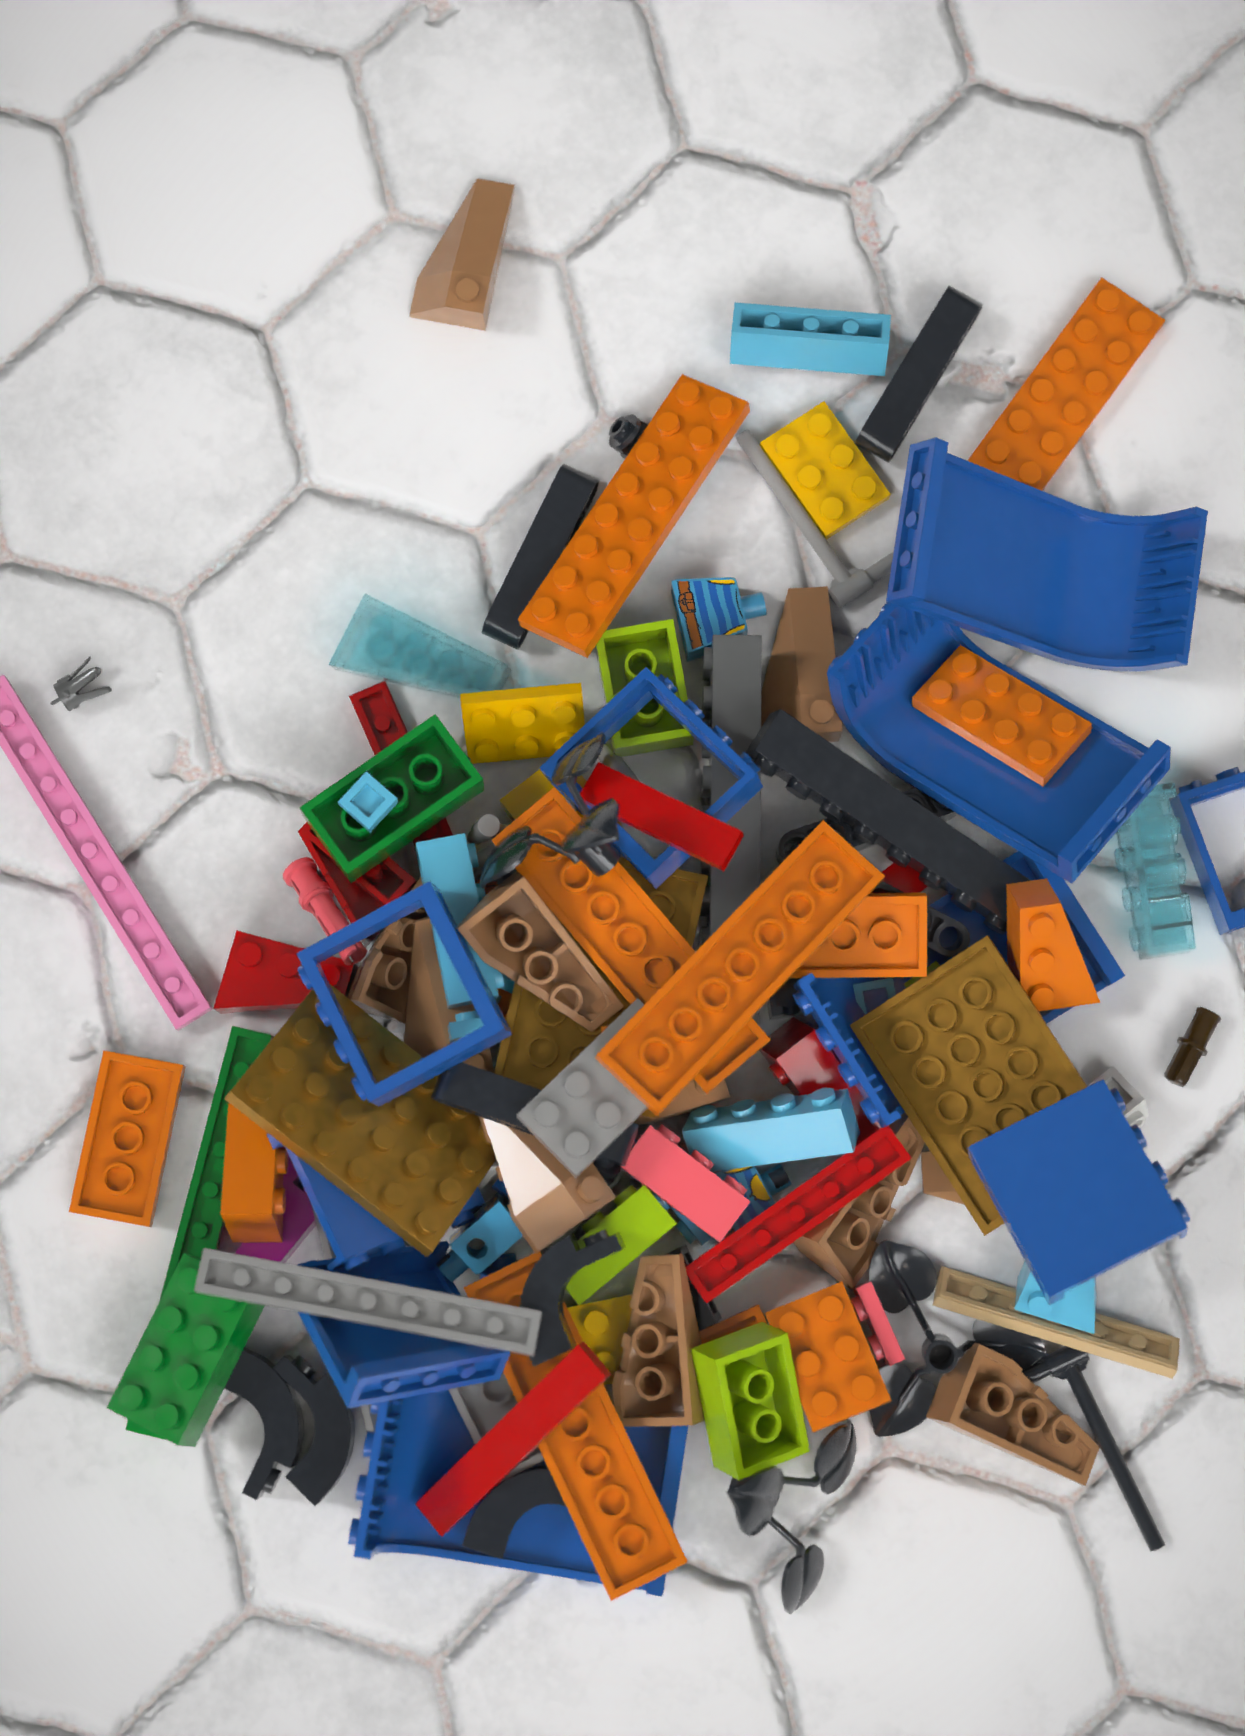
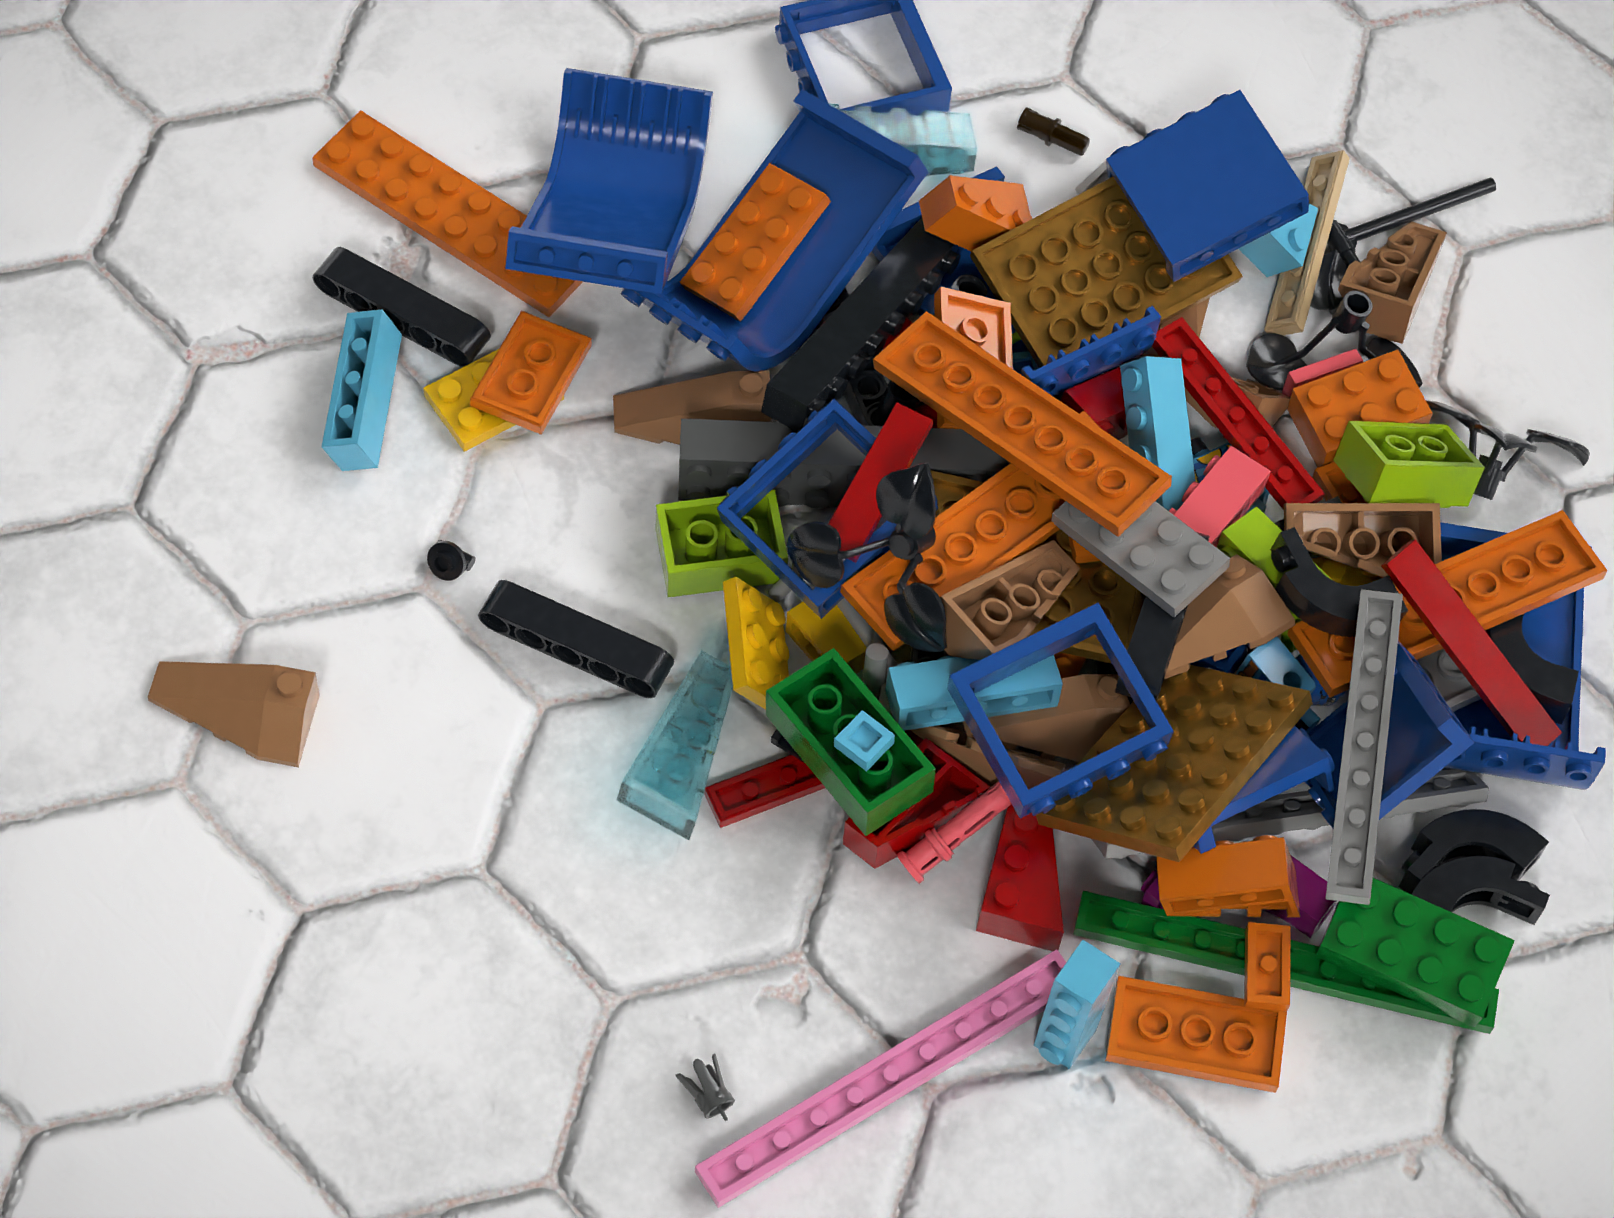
camera: 95 degrees left, 20 degrees down
(115, 1007) = (1075, 1004): none -> medium azure brick
(180, 1206) = (1267, 966): none -> orange plate
(464, 1024) = (1079, 677): medium azure plate -> none
(634, 515) = (542, 544): orange plate -> none
(712, 608) = (638, 484): torso -> none
(838, 499) = (531, 372): none -> orange tile
(846, 583) = (610, 377): light grey bar -> none

